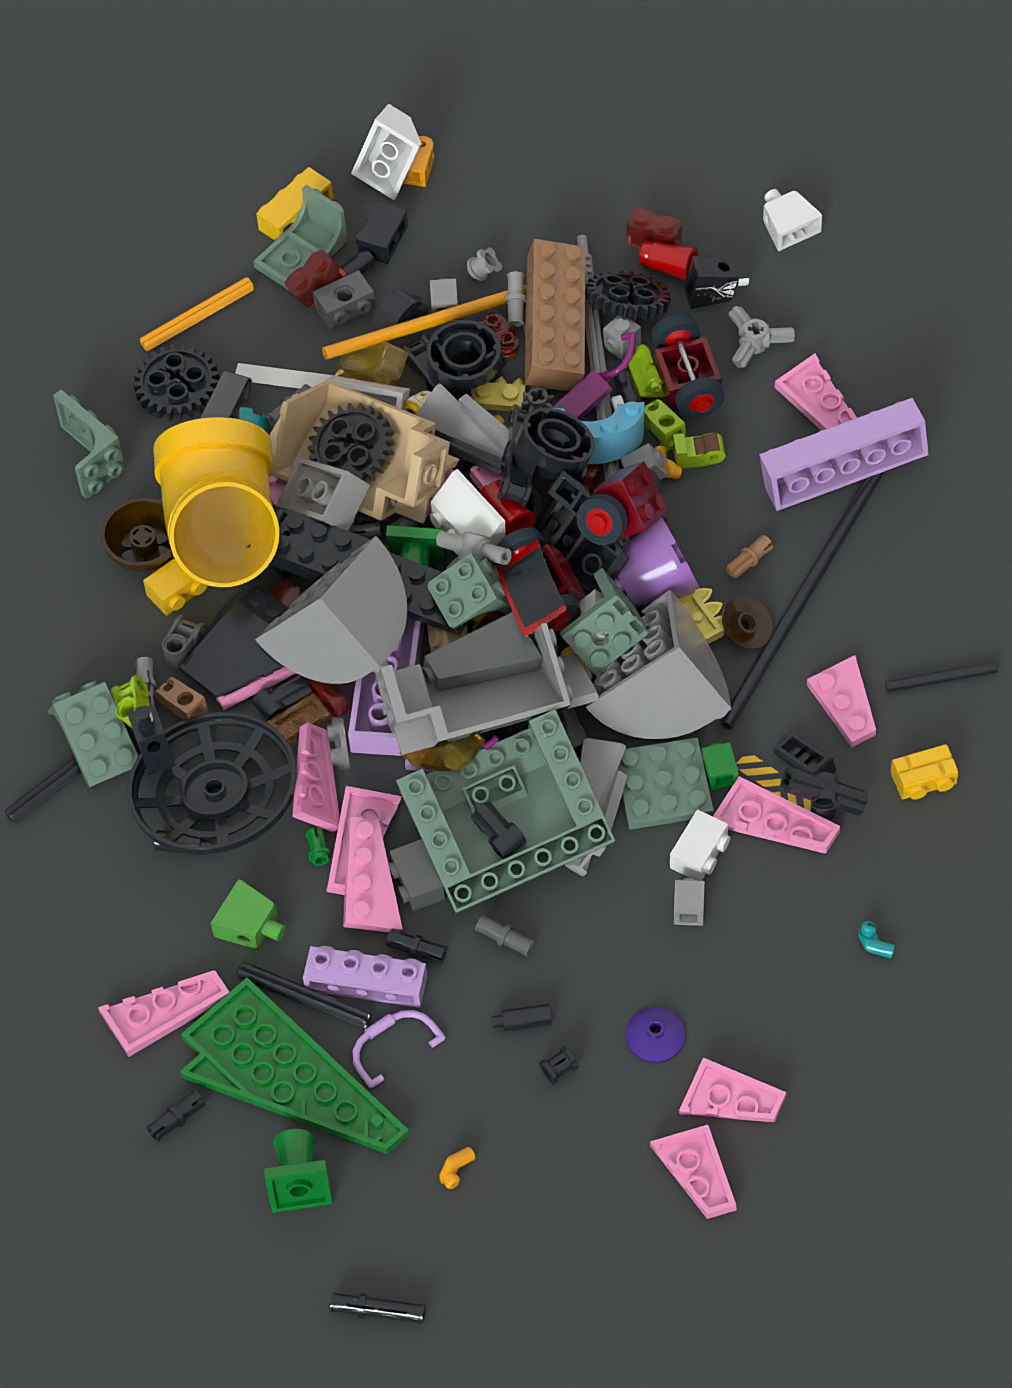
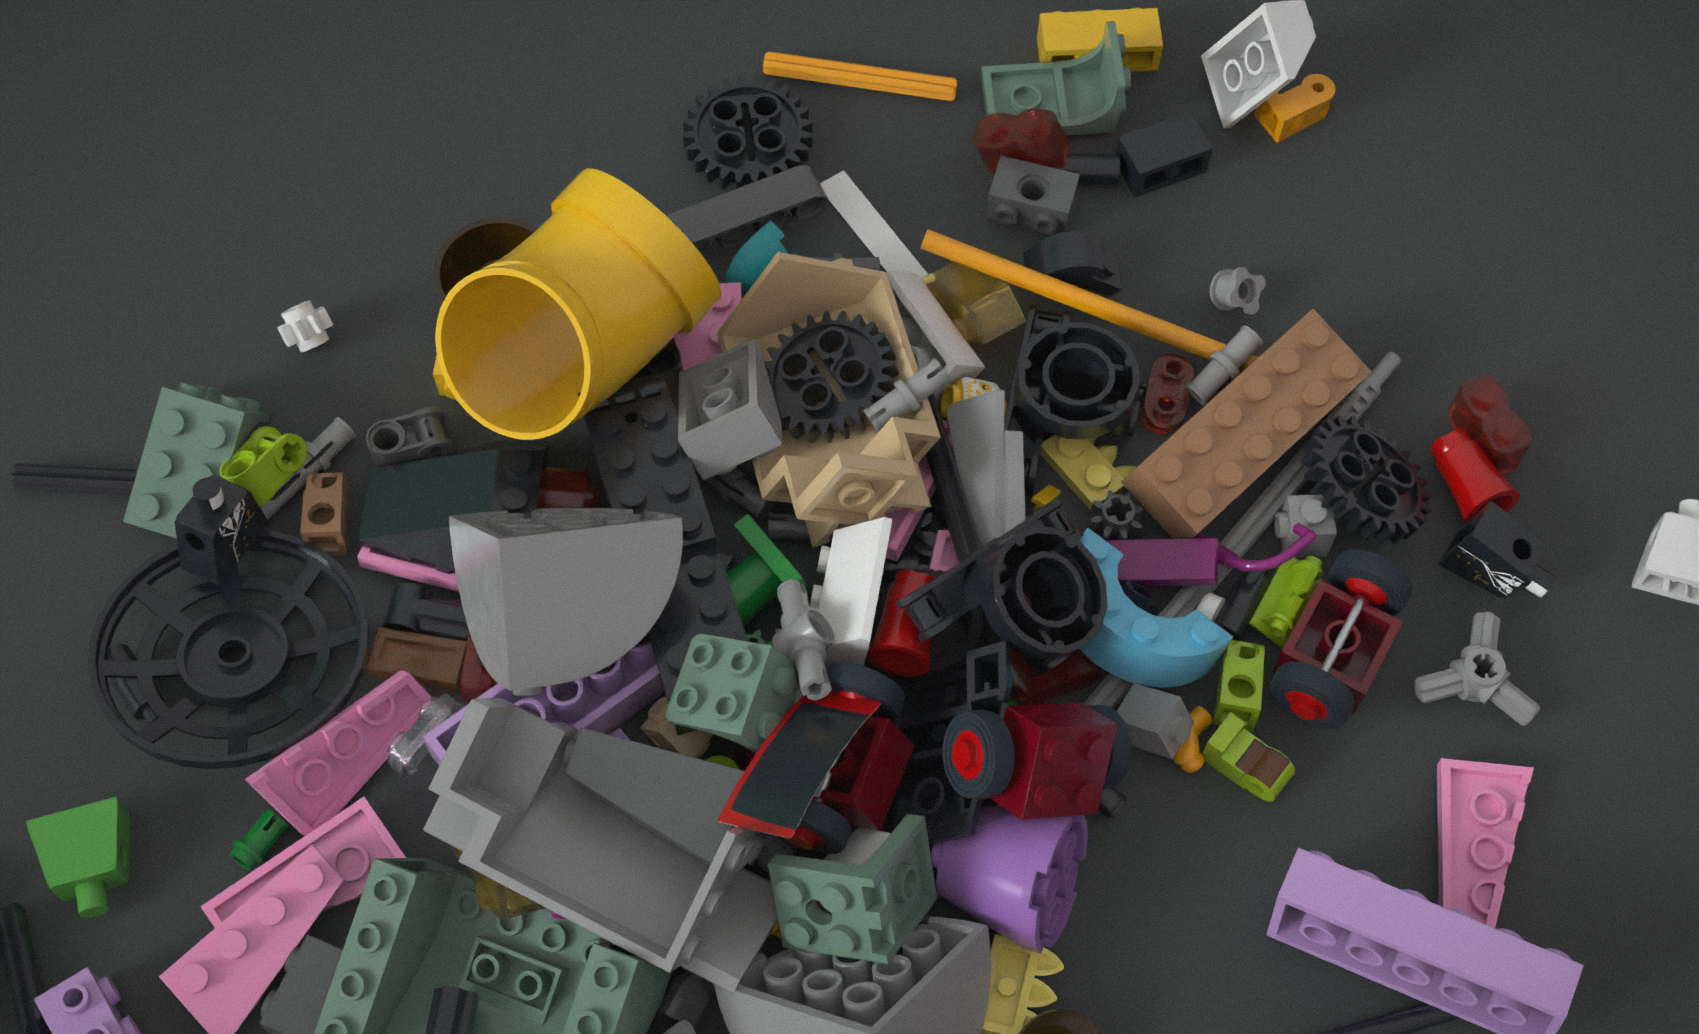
camera: 40 degrees right, 5 degrees up
(70, 636) = (305, 326): none -> white gear
(102, 441) = (573, 143): sand green bracket -> none
(403, 417) = (907, 394): none -> light grey pin
(443, 294) = (1148, 288): light grey brick -> none
(749, 557) = (1161, 967): medium nougat axle -> none

